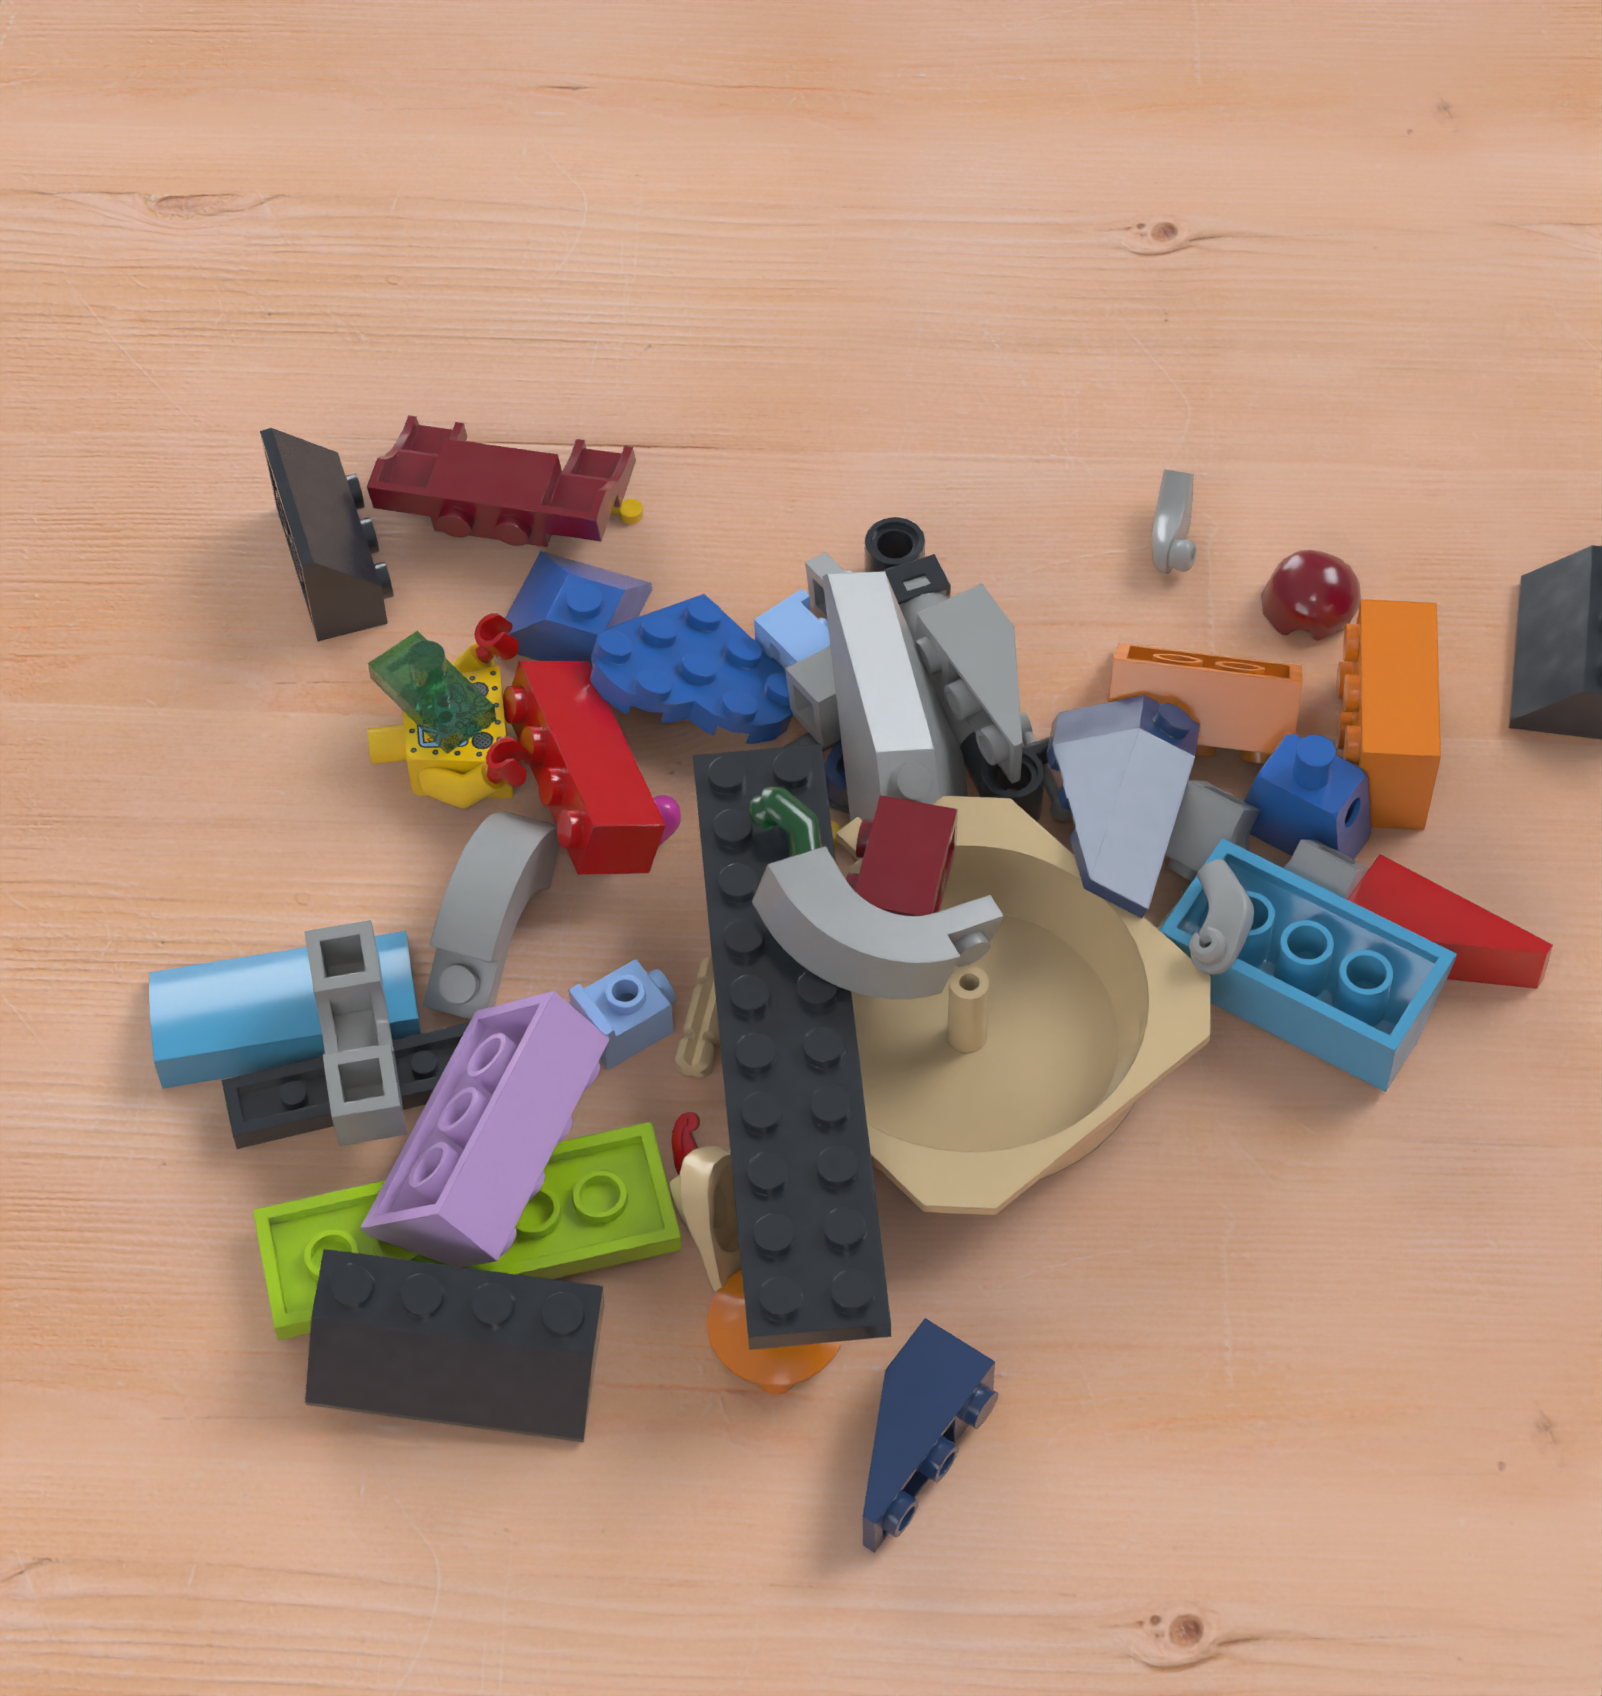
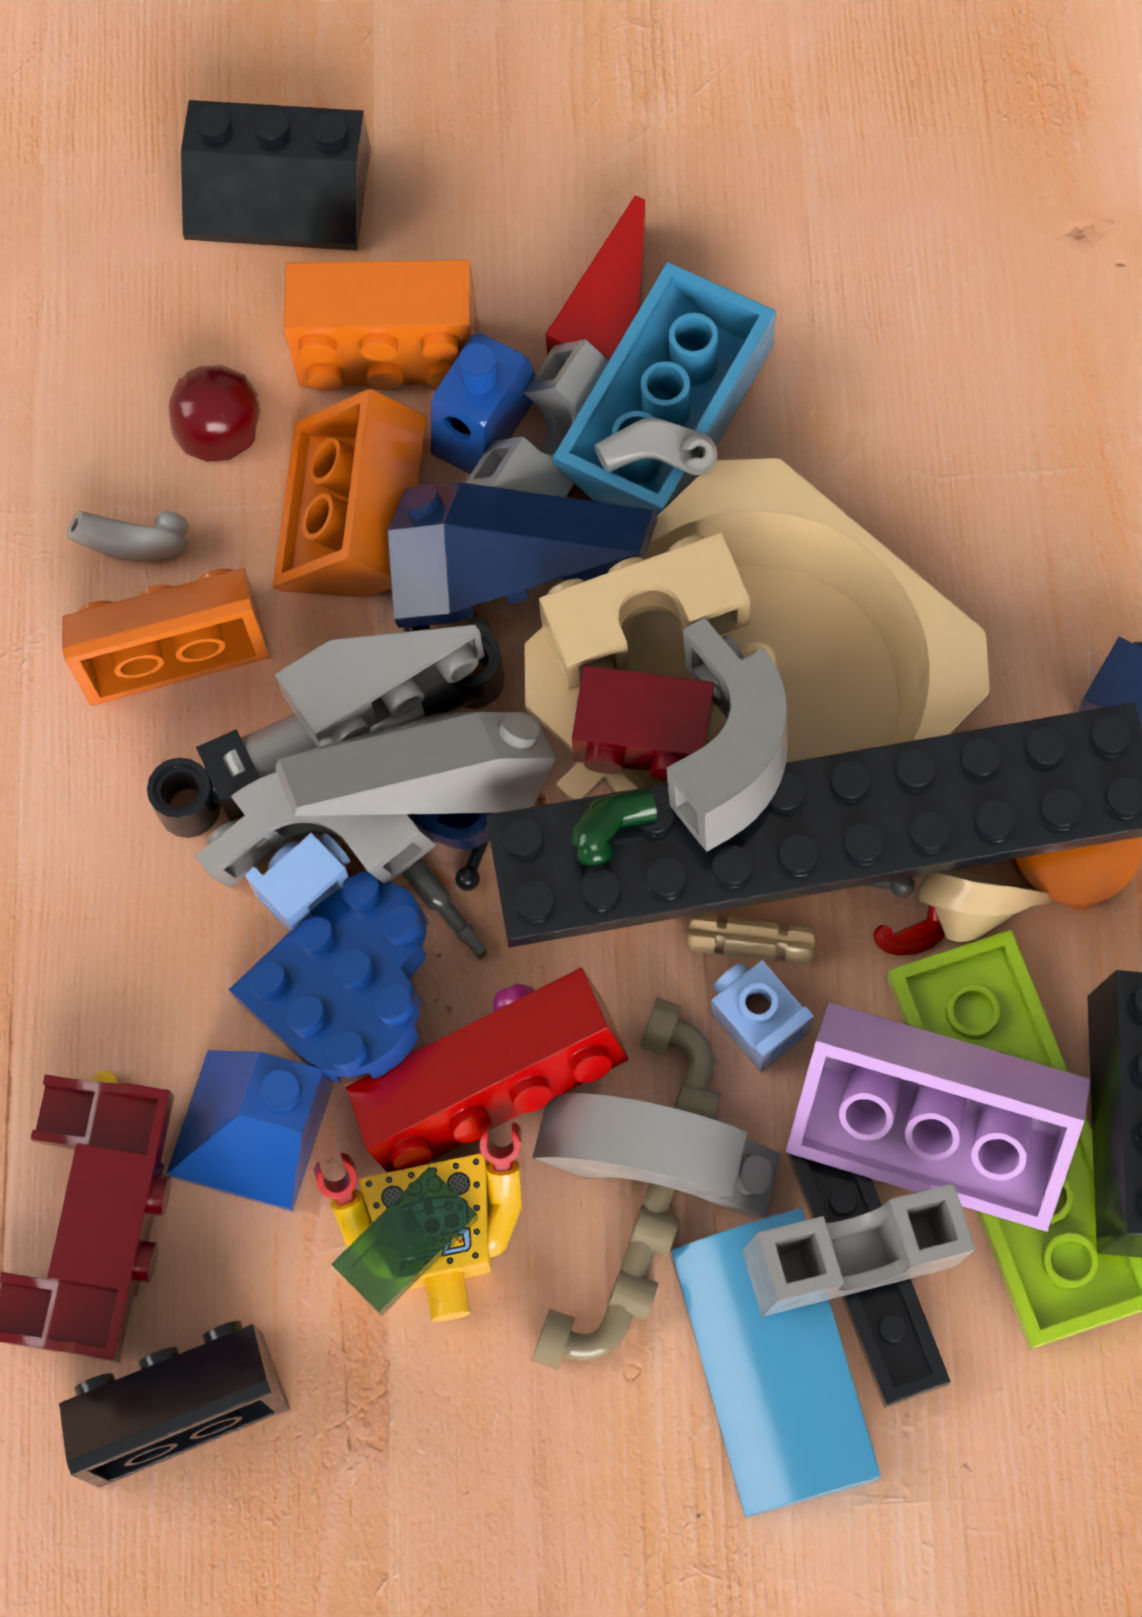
camera: 90 degrees left, 15 degrees up
(538, 951) = (653, 1227): none -> dark tan bar
(1015, 836) = (686, 583): none -> tan arch
(1061, 540) = (164, 636): none -> orange slope

